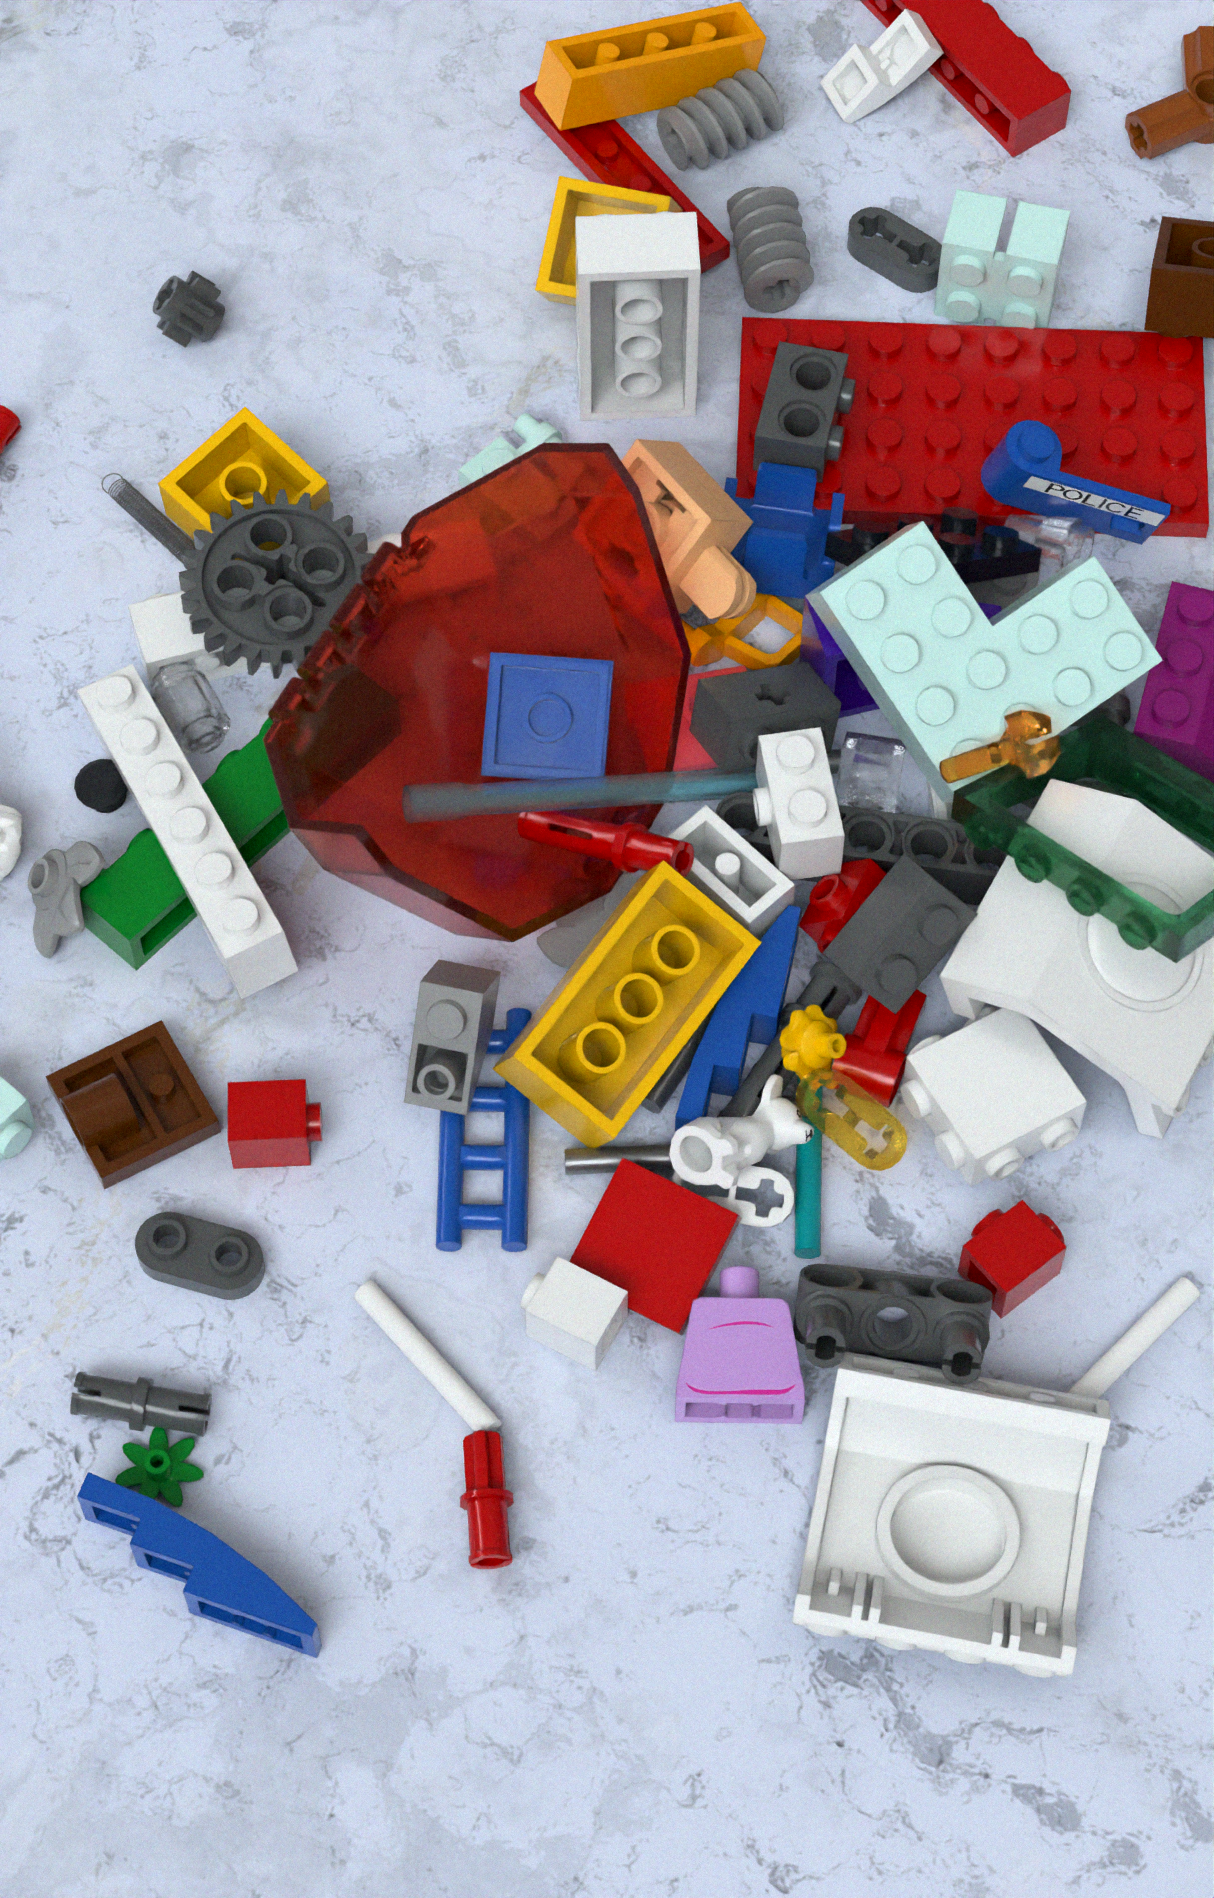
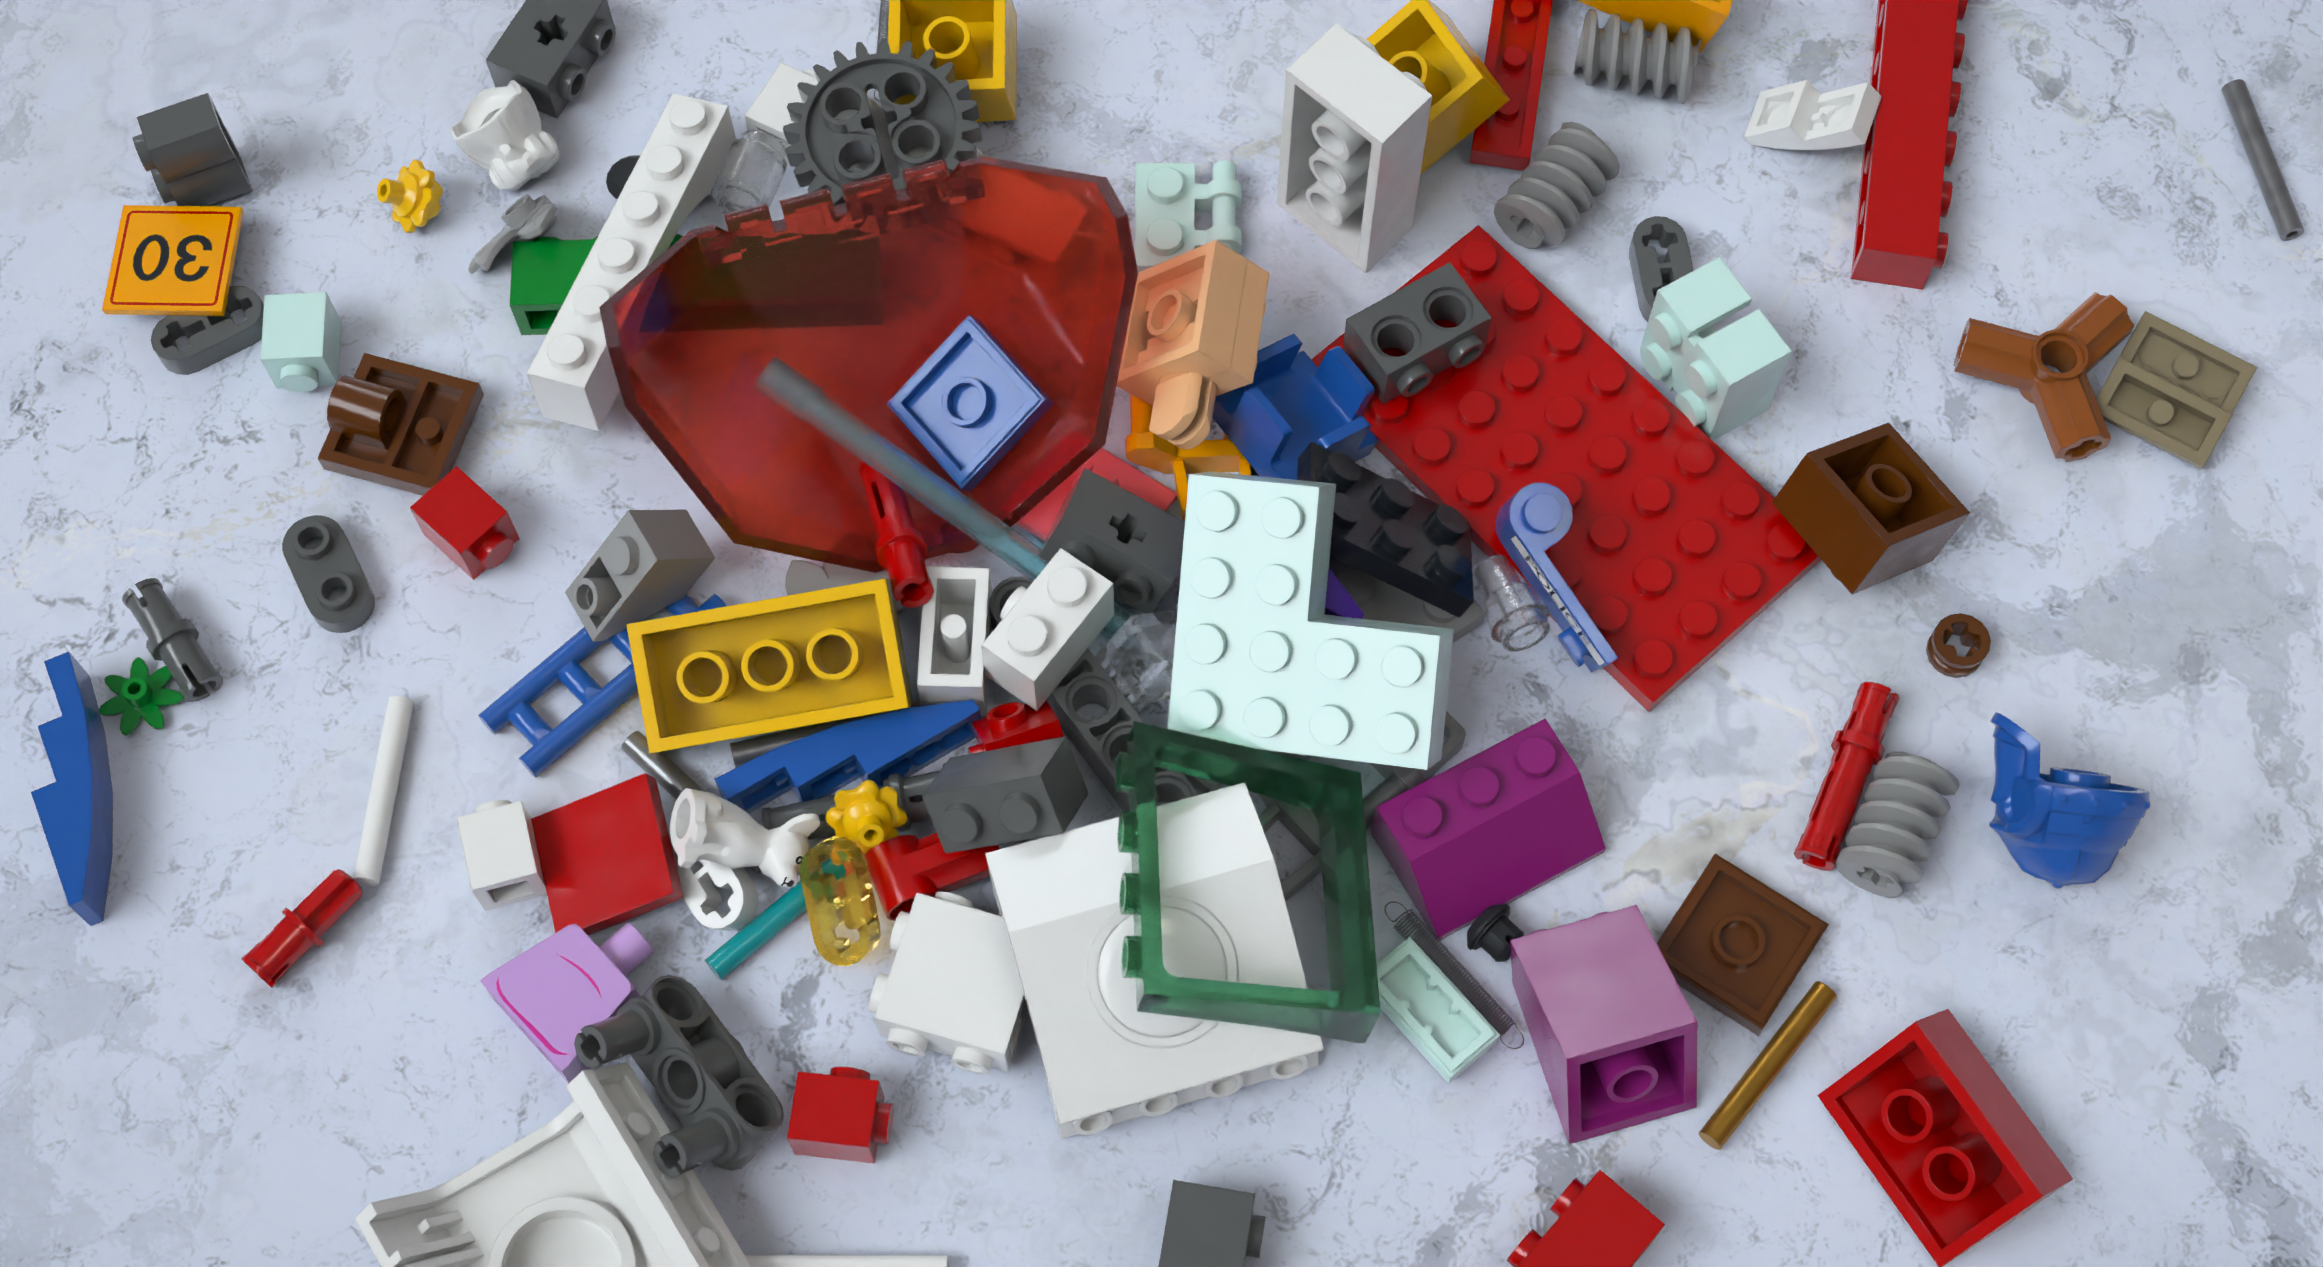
camera: 45 degrees right, 5 degrees up
(1010, 749) = (1227, 753): clear orange bar -> none

